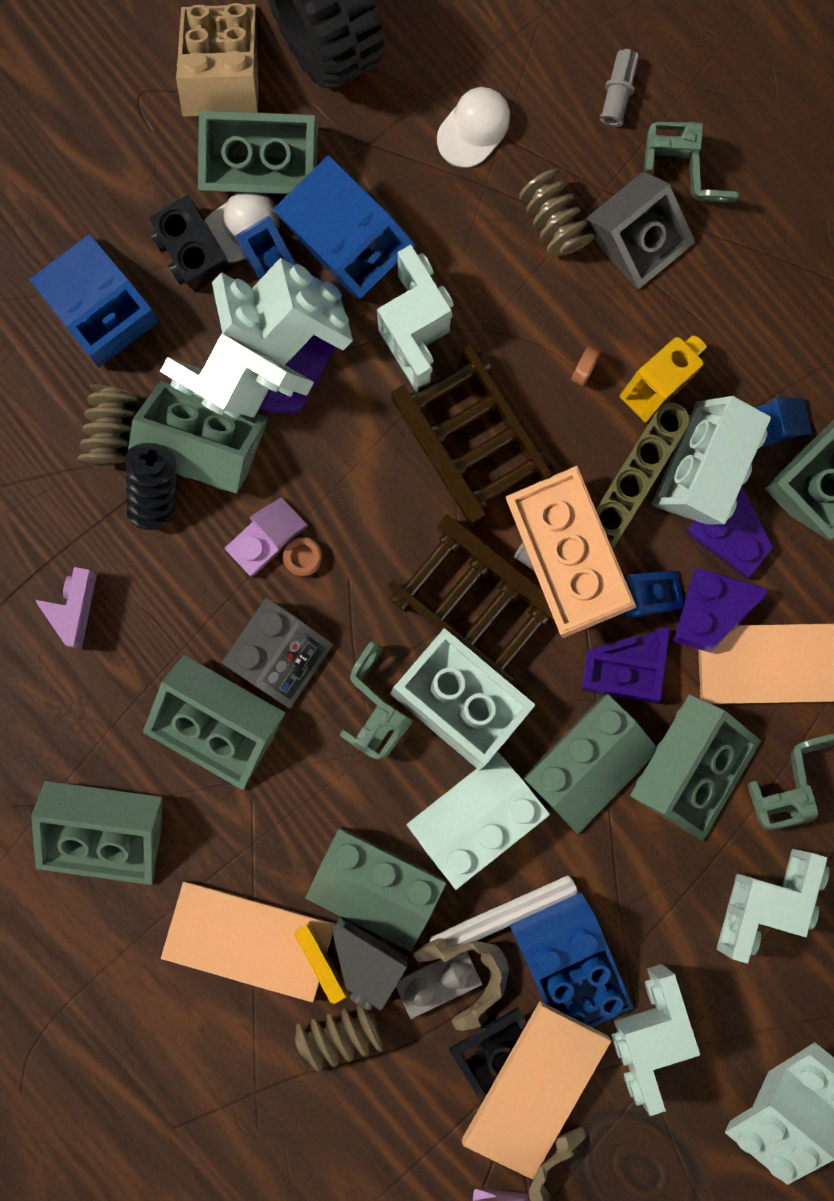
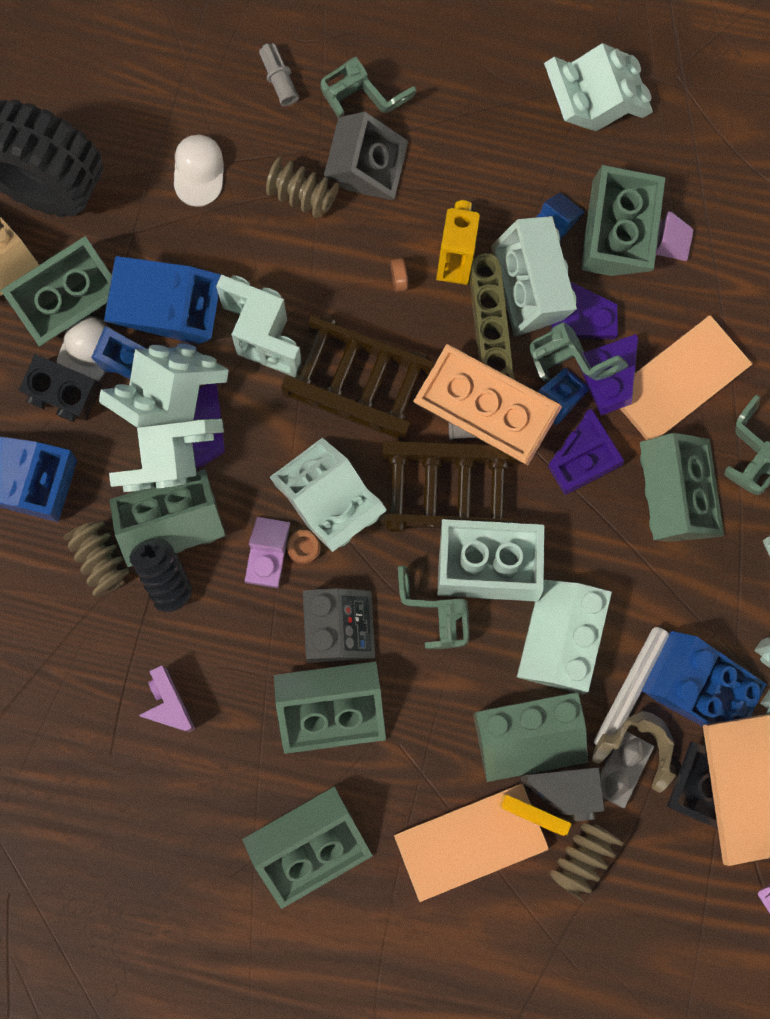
camera: 40 degrees left, 5 degrees down
(357, 525) = (328, 494): none -> light aqua bracket
(591, 763) = (609, 538): sand green slope -> none
(687, 548) = (564, 336): none -> sand green piece

